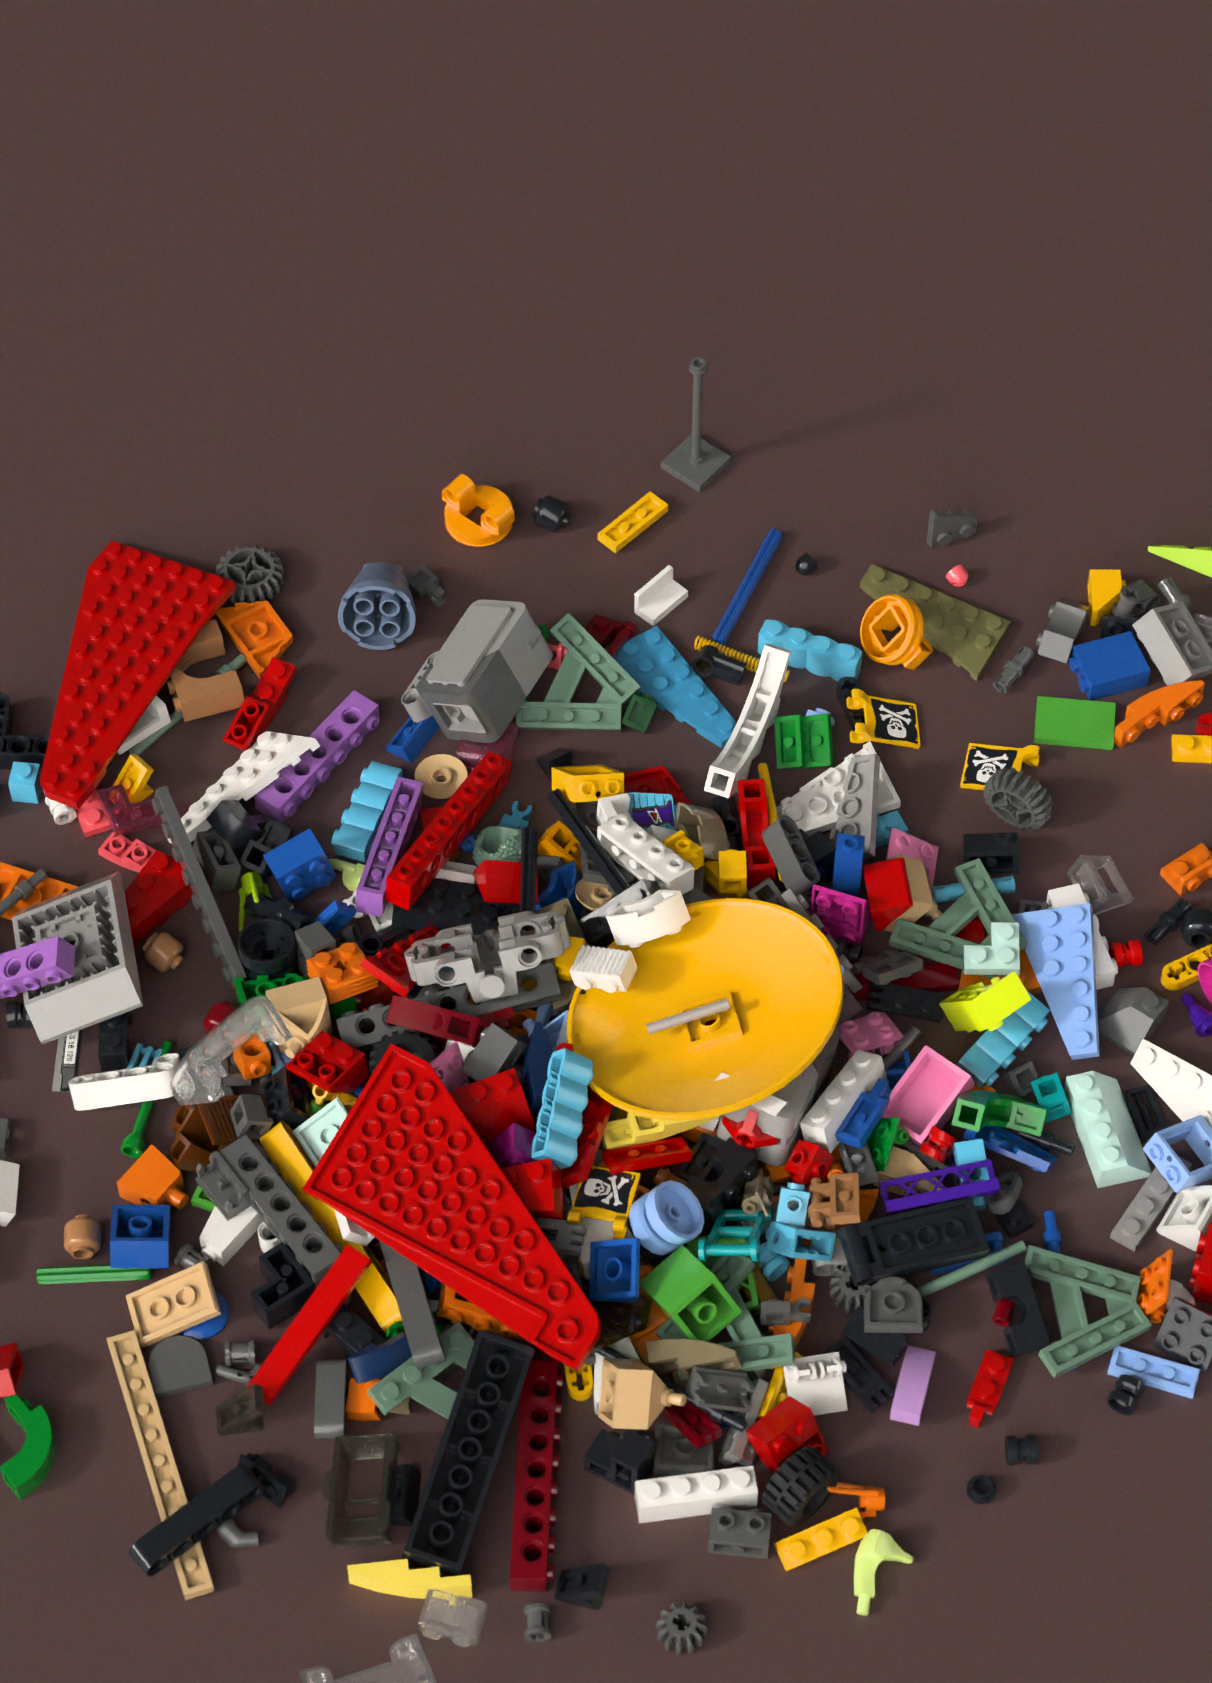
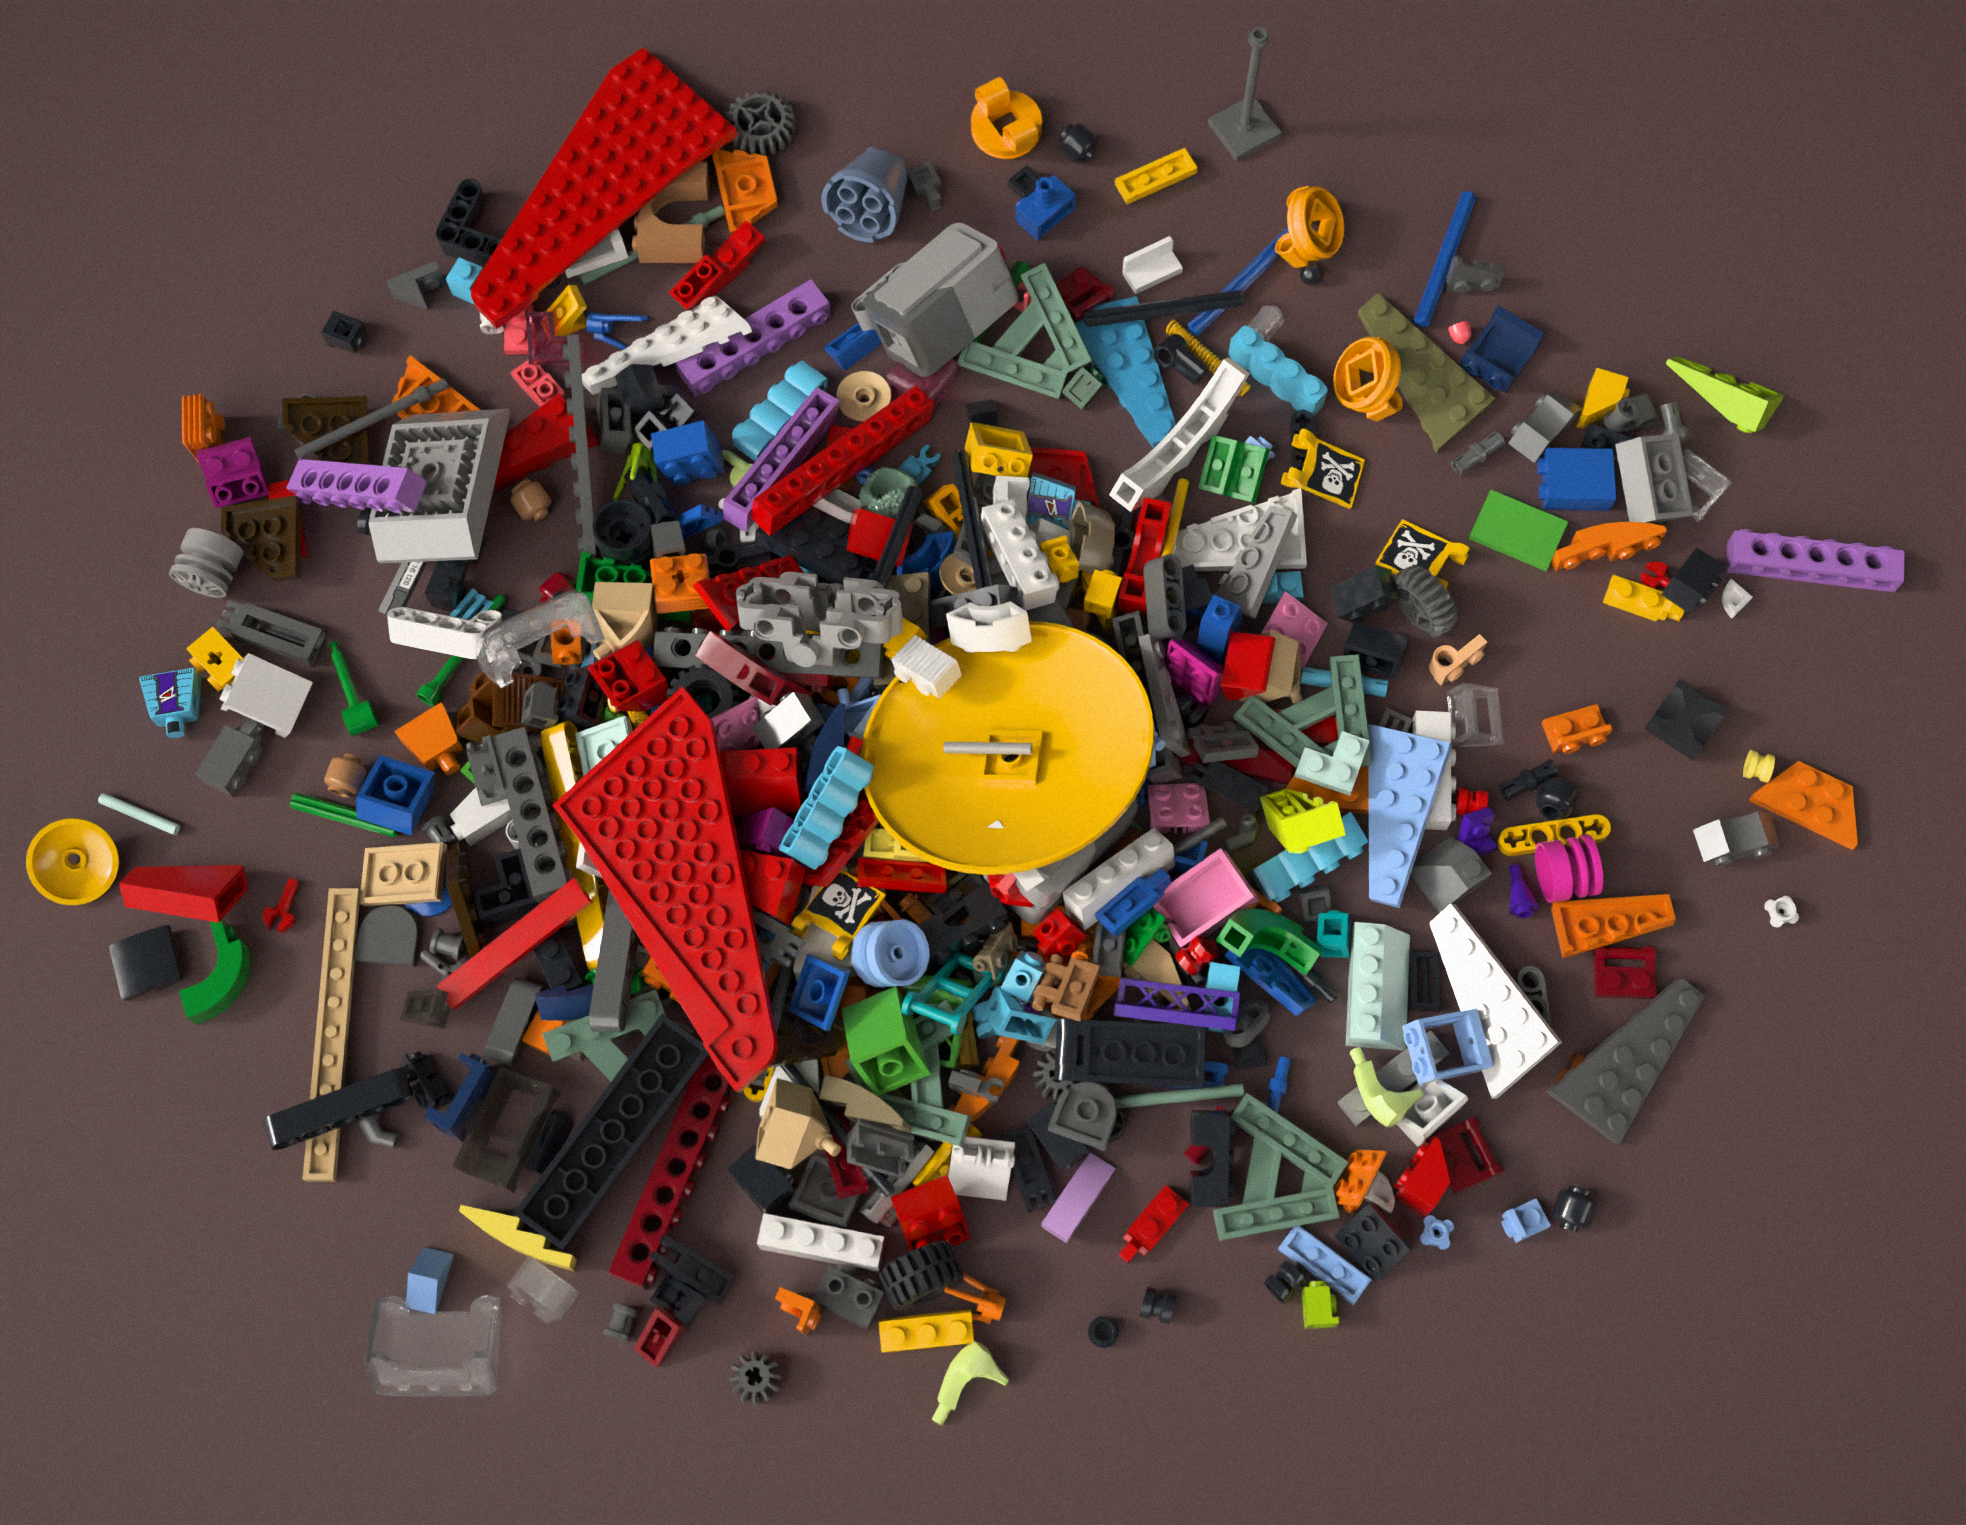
camera: 20 degrees right, 15 degrees up
(65, 1372) = (282, 908): none -> red bar
(73, 1182) = (359, 715): none -> green piece
(171, 780) = (602, 323): none -> blue plant
(249, 1313) = (462, 898): none -> dark brown plate
(307, 1499) = (473, 1089): none -> dark blue panel
(339, 1647) = (428, 1280): none -> medium blue slope
(517, 559) = (1024, 181): none -> black plate
(543, 574) = (1045, 206): none -> blue brick
(578, 1620) = (659, 1337): none -> dark red slope
(586, 1551) = (695, 1271): none -> black hinge
(686, 627) = (1163, 308): none -> black axle
(699, 1548) = (797, 1305): none -> orange bracket
(784, 611) = (1267, 322): none -> clear brick
(791, 537) = (1302, 241): none -> light orange piece
(919, 521) = (1444, 259): none -> blue axle
(938, 1036) = (1246, 834): none -> dark grey arm
(963, 808) = (1364, 594): none -> black brick
(1000, 579) = (1502, 350): none -> dark blue panel
(1064, 841) = (1470, 653): none -> light nougat plate
(1140, 972) = (1475, 831): none -> dark purple bracket
(1152, 1218) = (1384, 1105): none -> yellowish green animal
(1164, 1405) = (1318, 1306): none -> lime brick

